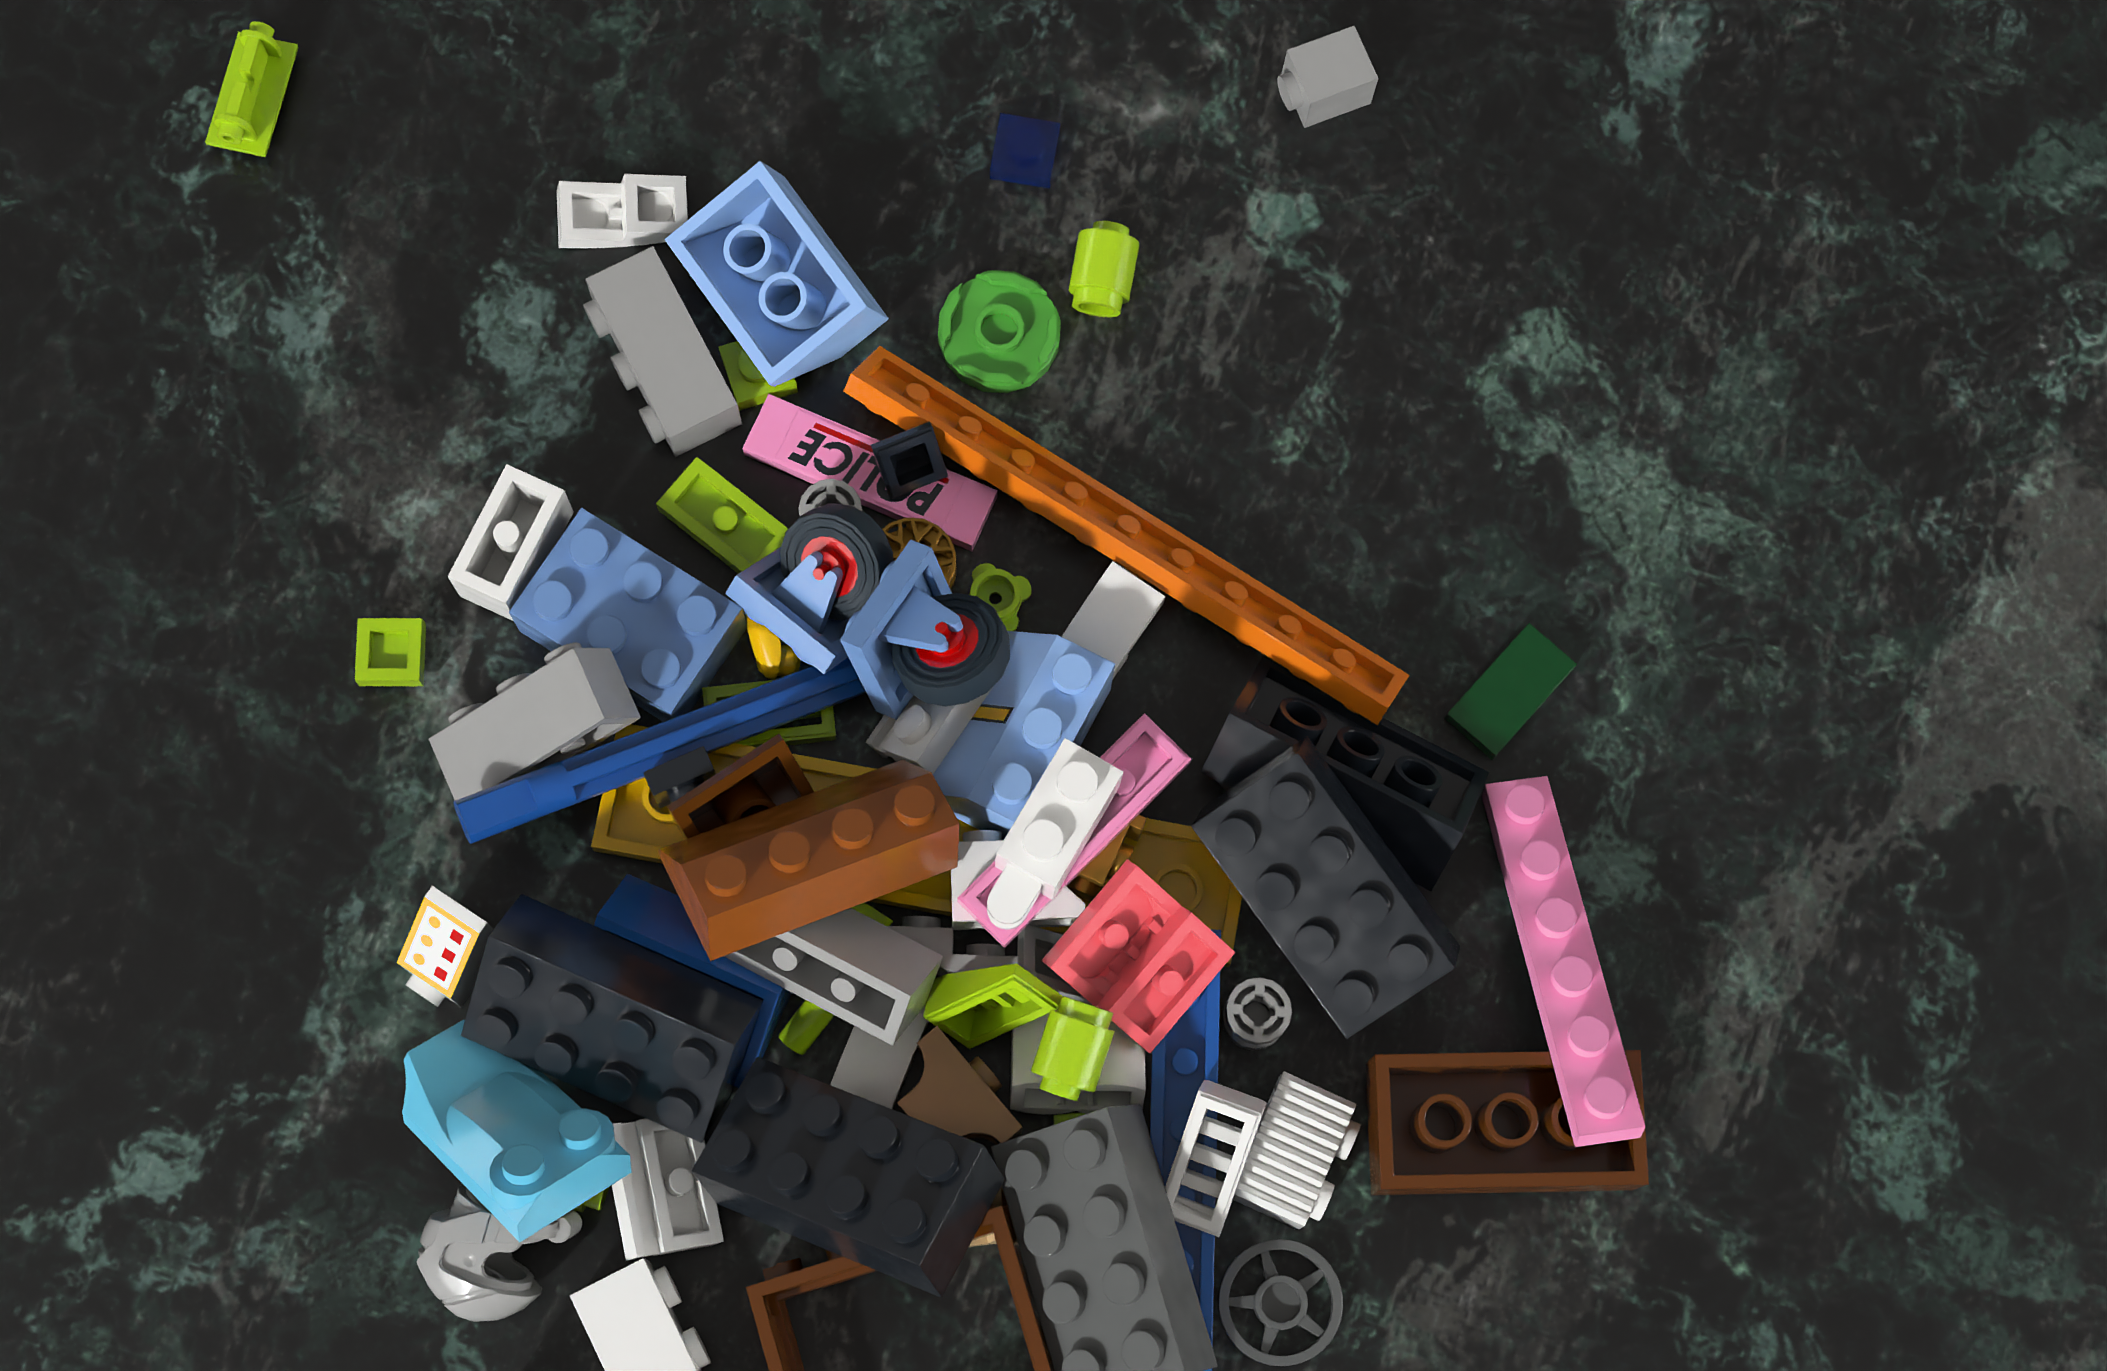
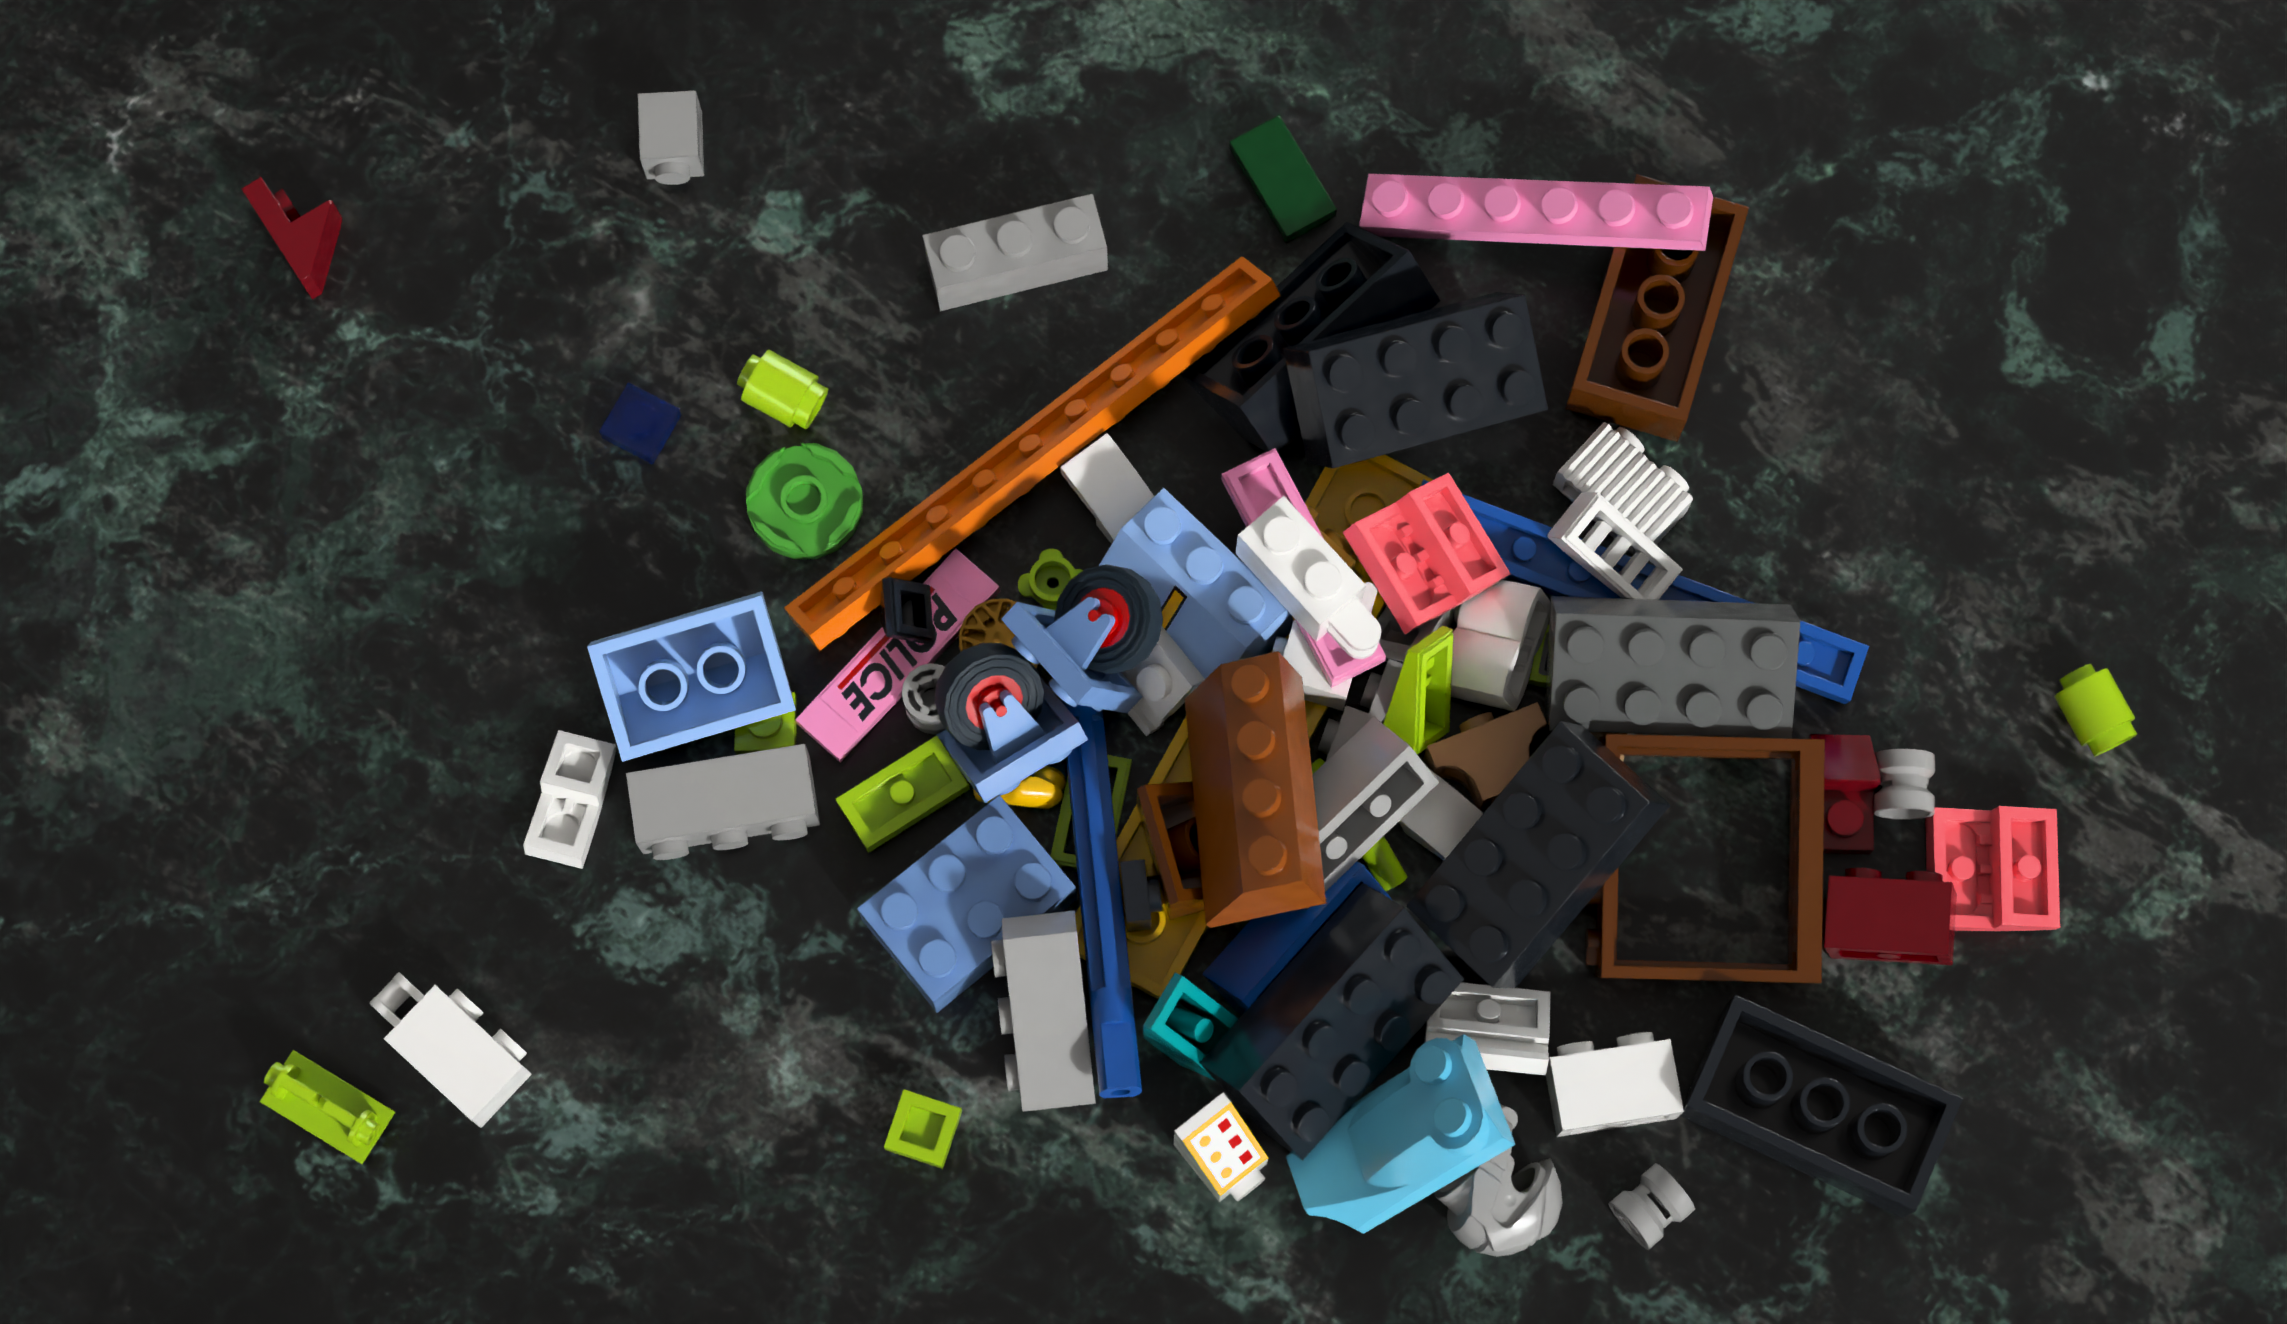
camera: 65 degrees left, 0 degrees up
(337, 183) = (452, 1049): none -> white brick
(510, 540) = (863, 985): white brick -> none
(563, 868) = (1186, 1024): none -> teal slope
(1073, 1048) = (1493, 628): lime brick -> none
(1252, 1024) = (1496, 488): light grey wheel -> none
(1280, 1302) = (1744, 545): dark grey wheel -> none
(1327, 445) = (1016, 252): none -> light grey brick

